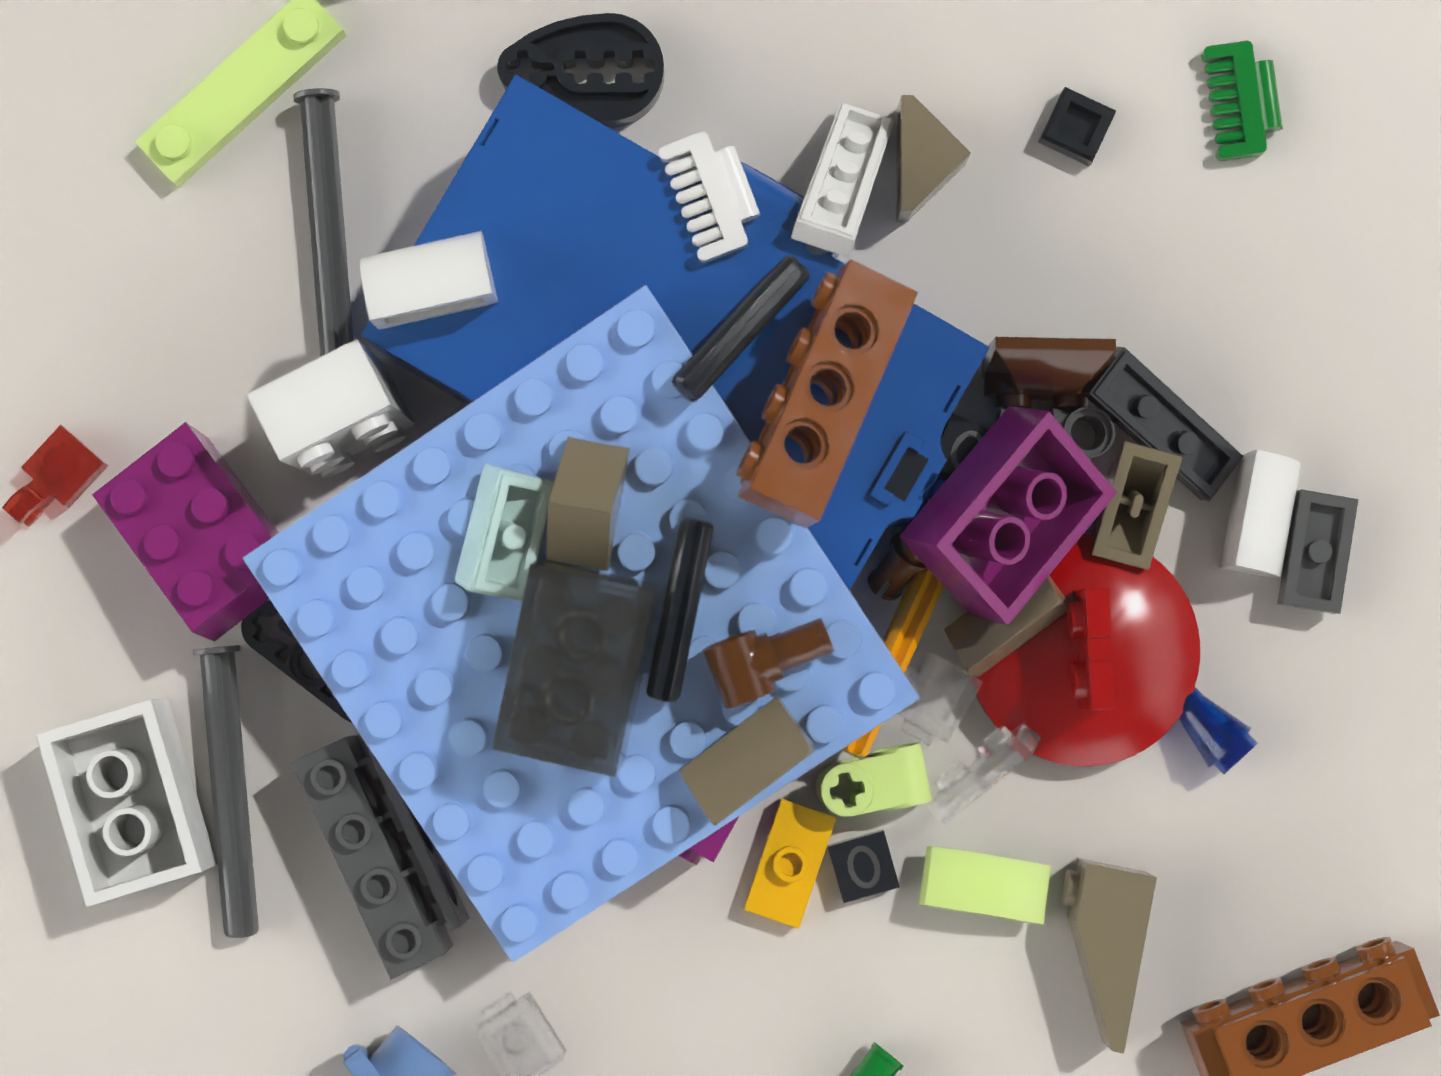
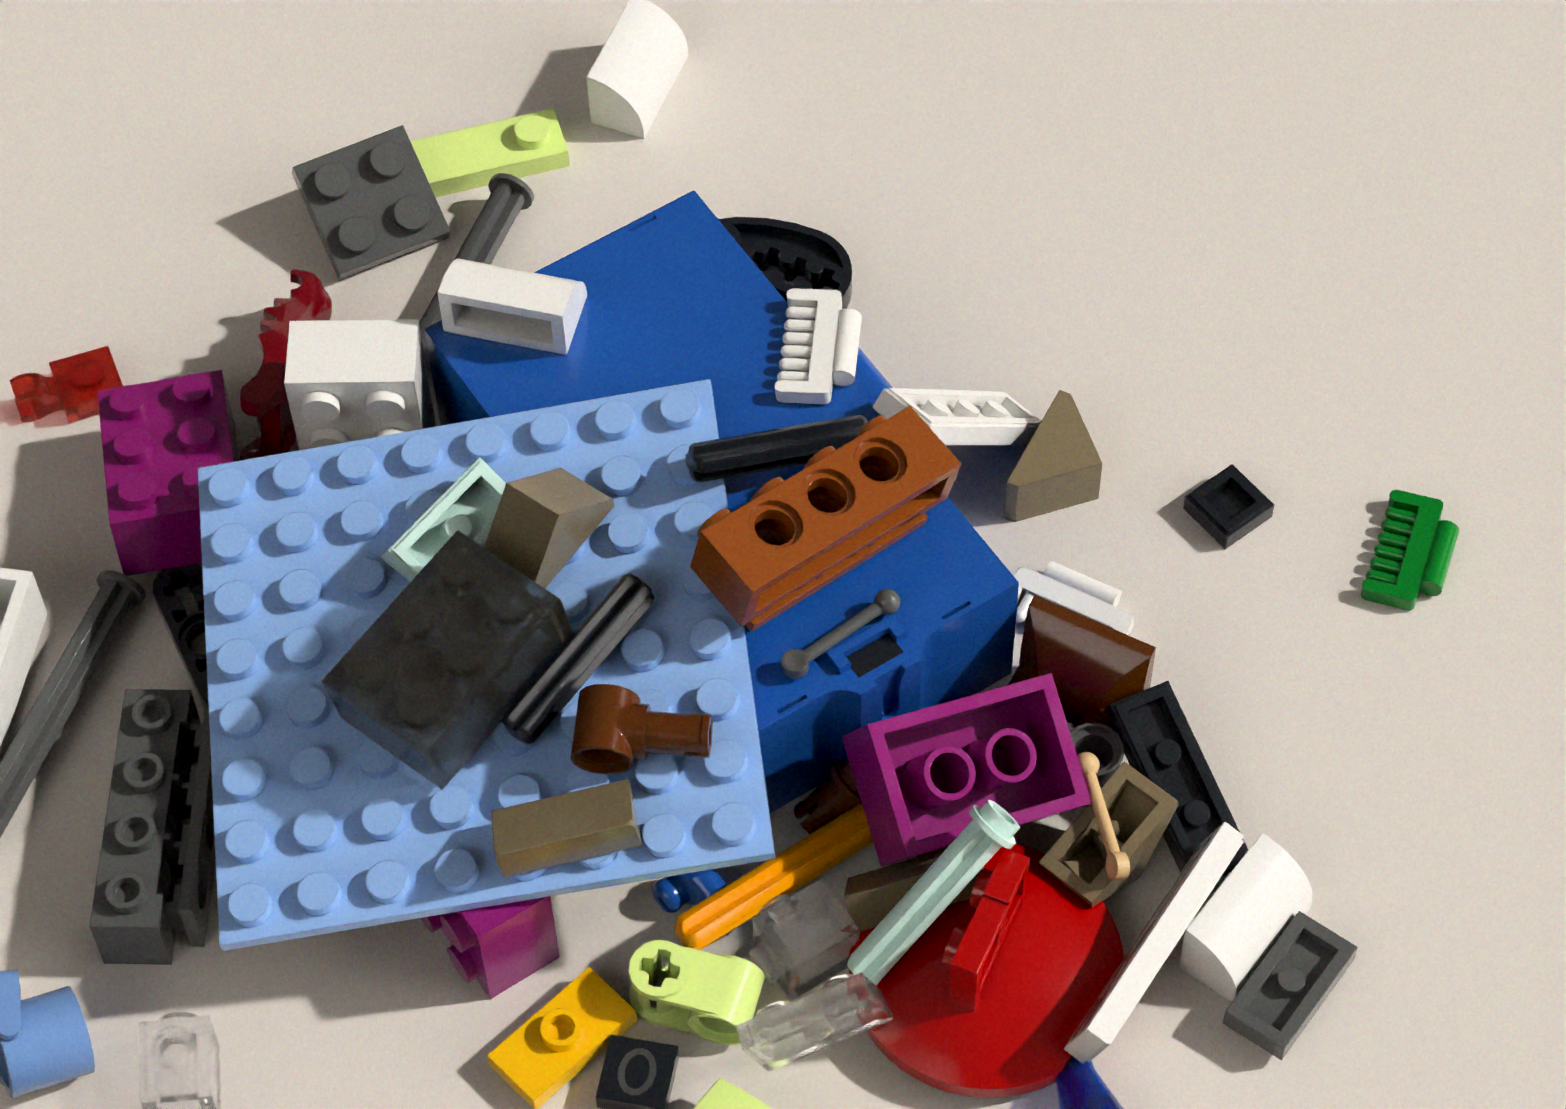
camera: 30 degrees right, 30 degrees down
(203, 172) = (370, 202): none -> dark grey plate
(229, 383) = (266, 393): none -> dark red animal
(852, 518) = (796, 661): none -> dark grey hinge
(997, 275) = (1073, 592): none -> white piece
(1070, 589) = (934, 890): none -> light aqua axle
(1158, 534) = (1116, 862): none -> tan hinge
(1214, 583) = (1154, 944): none -> white tile

